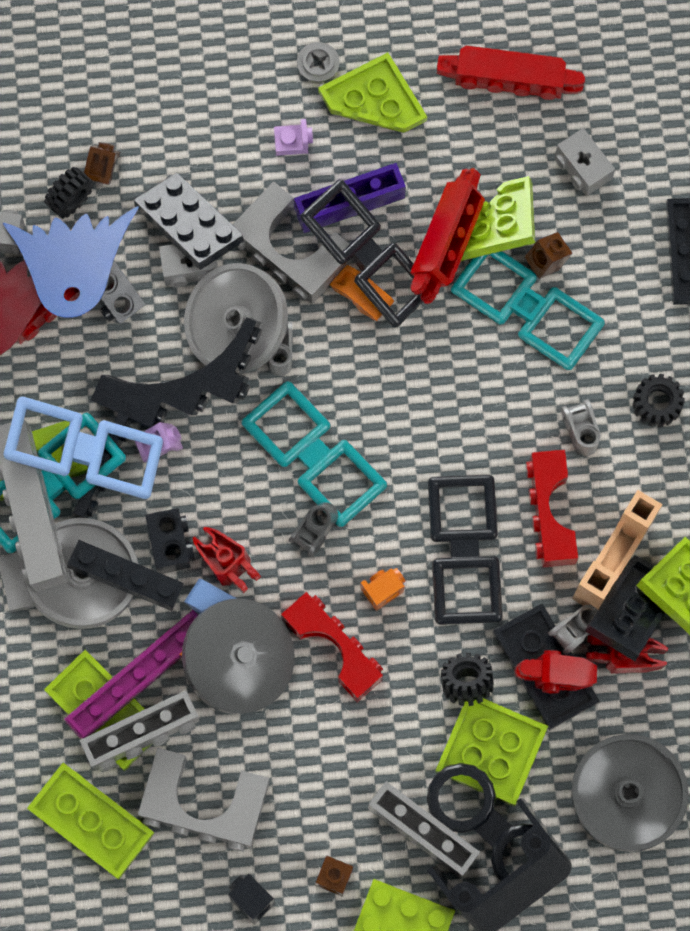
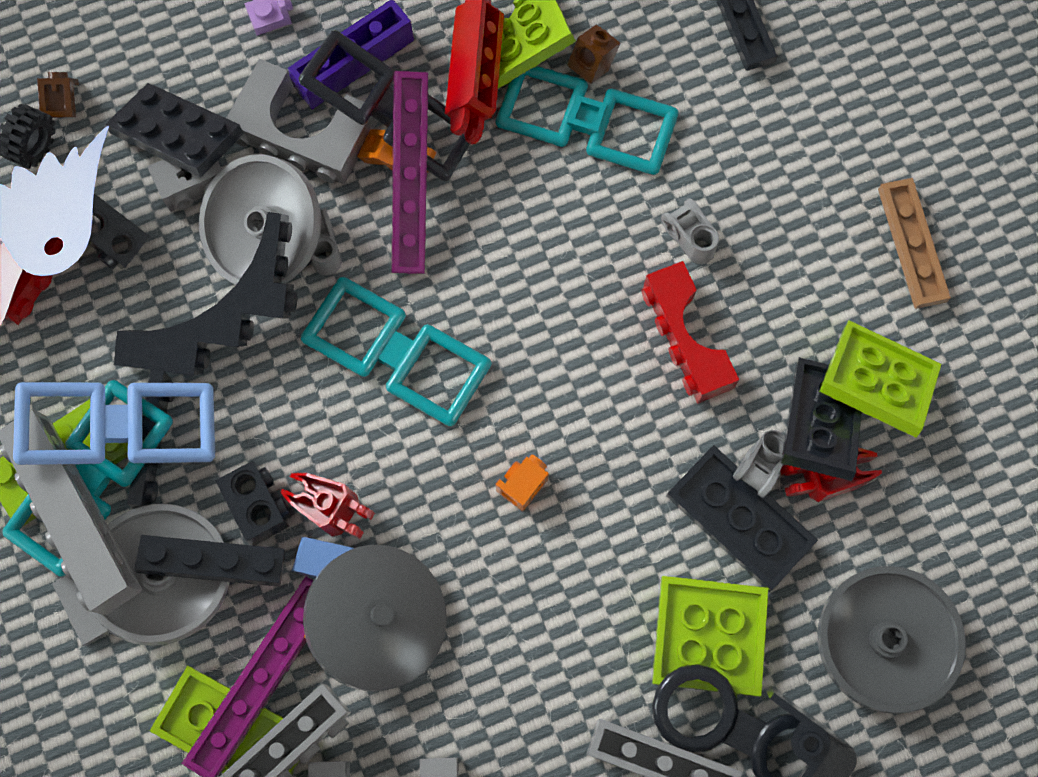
camera: 15 degrees left, 0 degrees up
(170, 436) = (222, 382): lavender bracket -> none
(308, 619) = (447, 546): red arch -> none
(311, 532) = (420, 442): dark grey piece -> none
(367, 314) = (409, 172): none -> magenta tile
(464, 549) = (604, 410): black bar -> none
(465, 667) = (656, 577): black tyre -> none
(557, 672) = (760, 521): red hinge -> none
(617, 551) = (774, 391): light nougat arch -> none
(663, 385) = (773, 162): black tyre -> none

